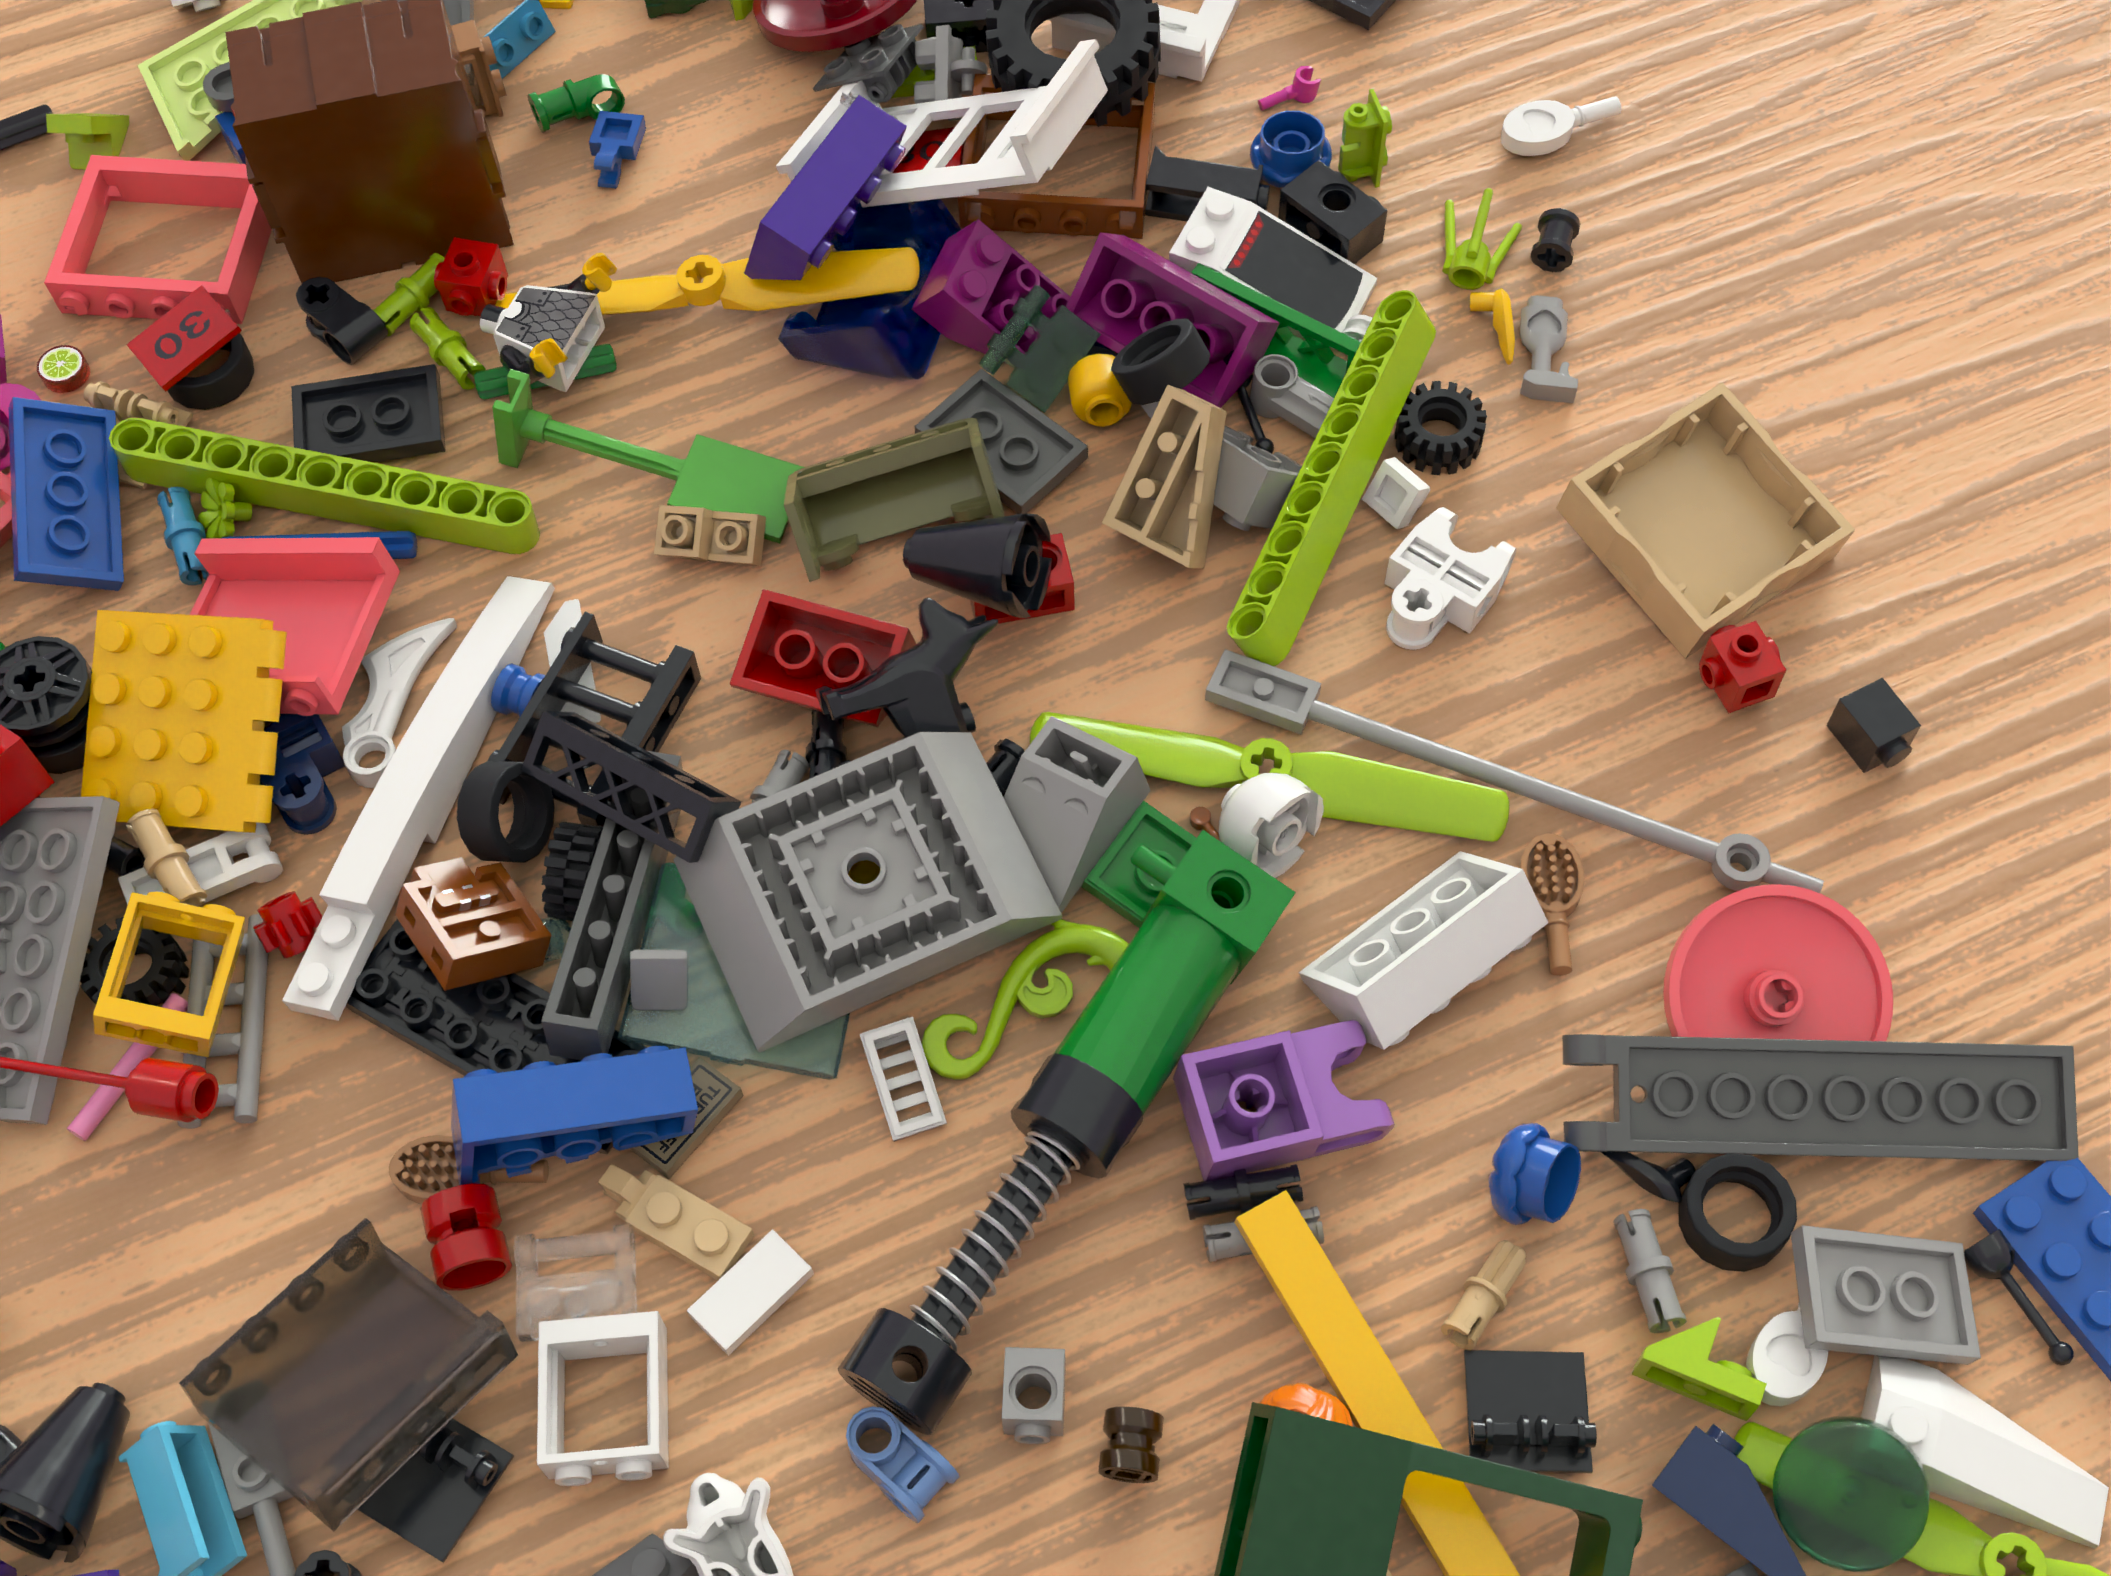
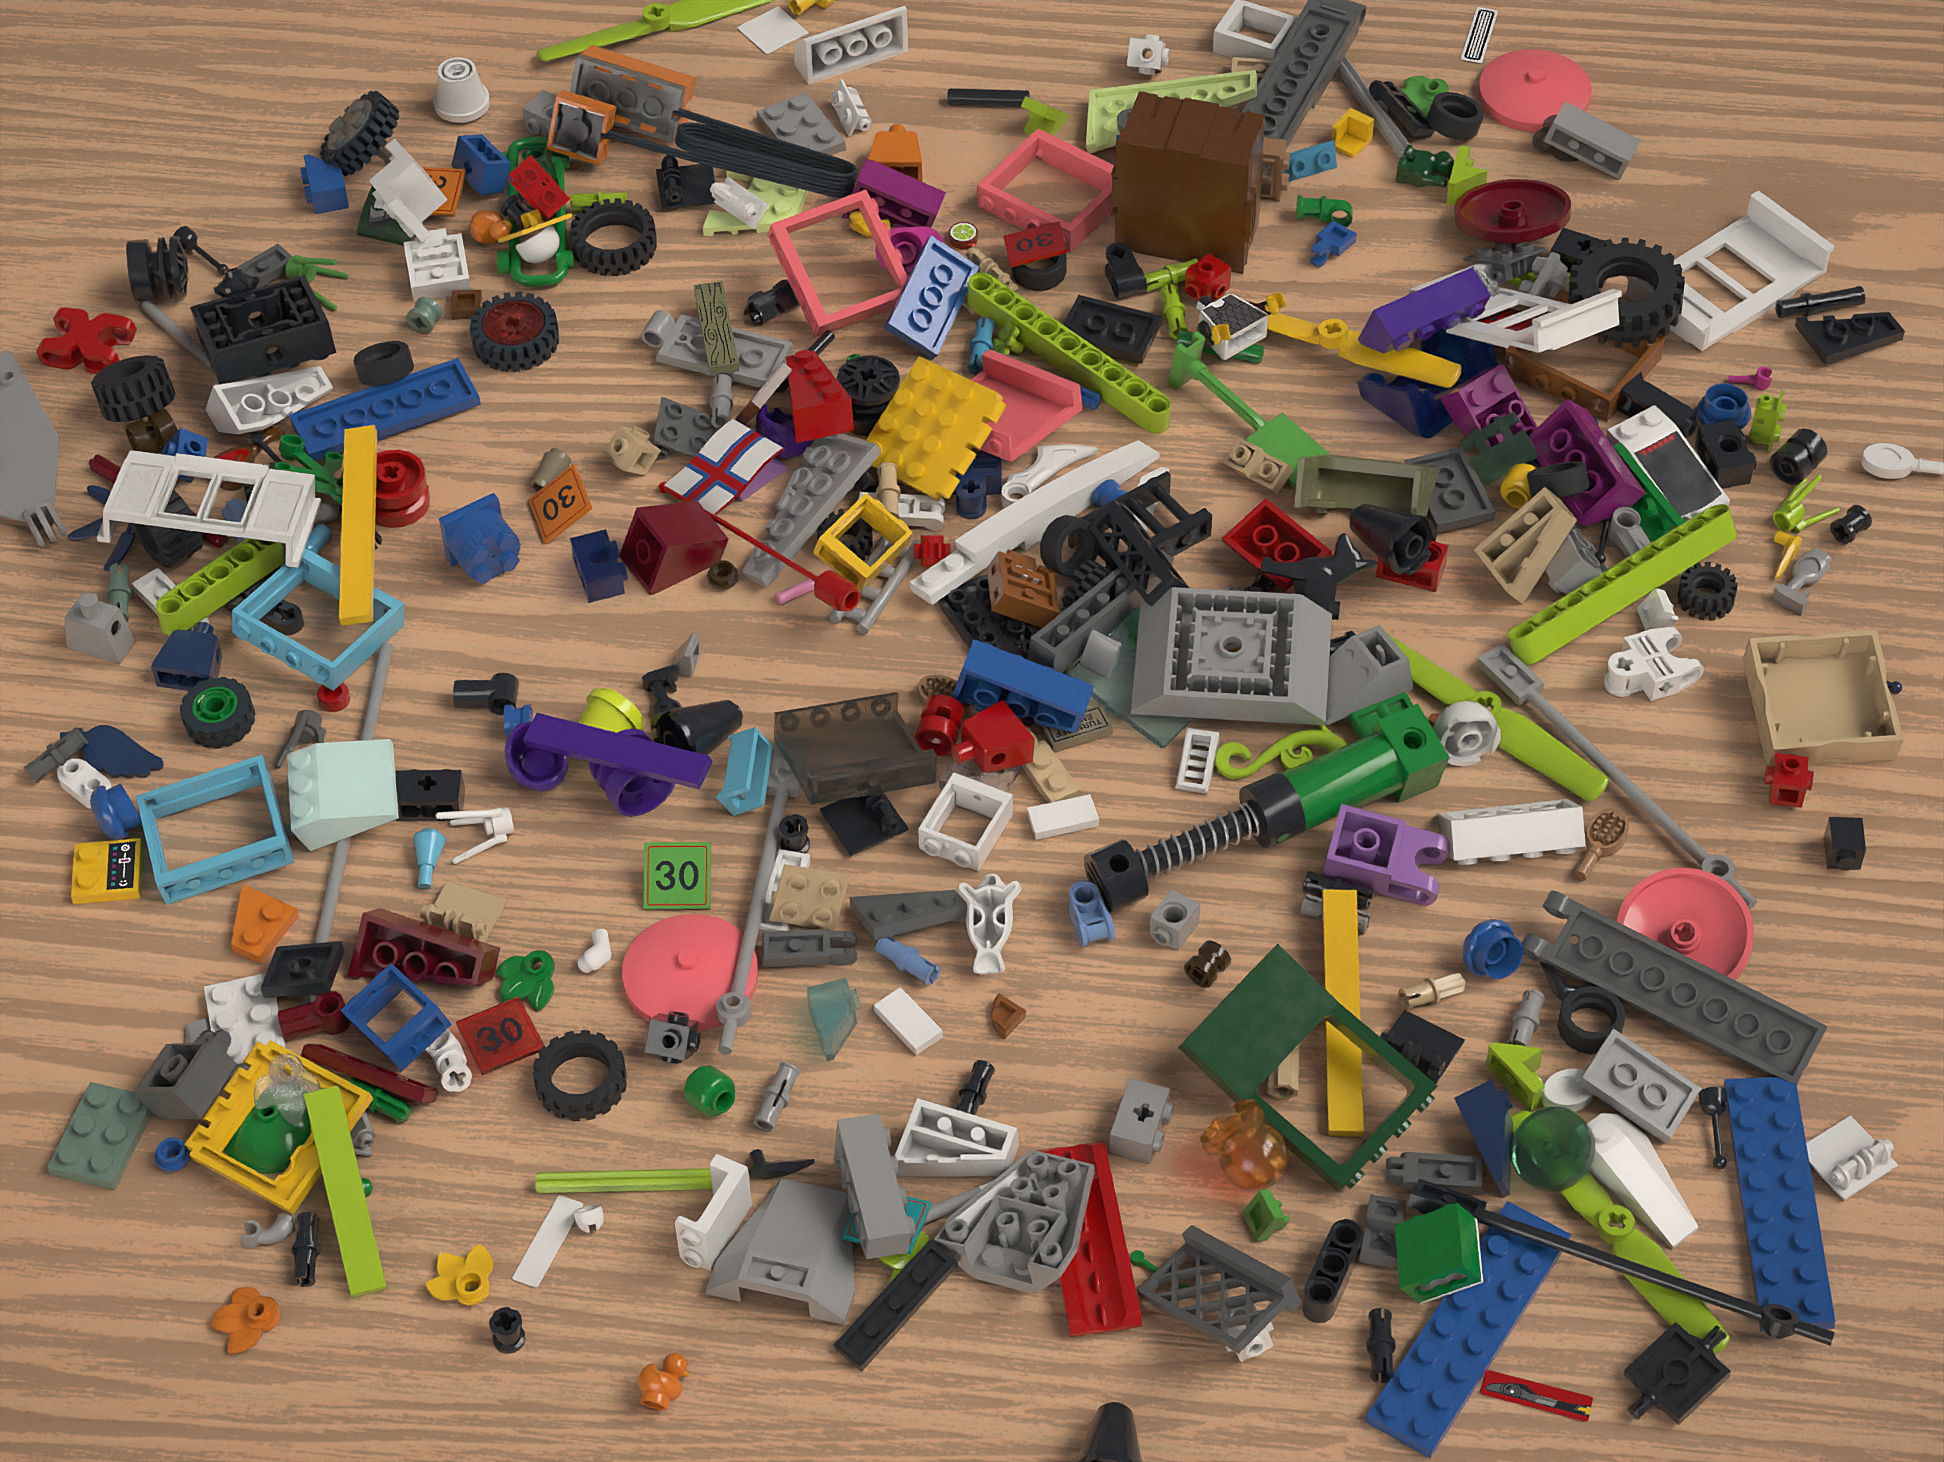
camera: 30 degrees right, 10 degrees down
(573, 1225) = (994, 740): none -> red torso
(1429, 174) = (1798, 456): none -> black wheel

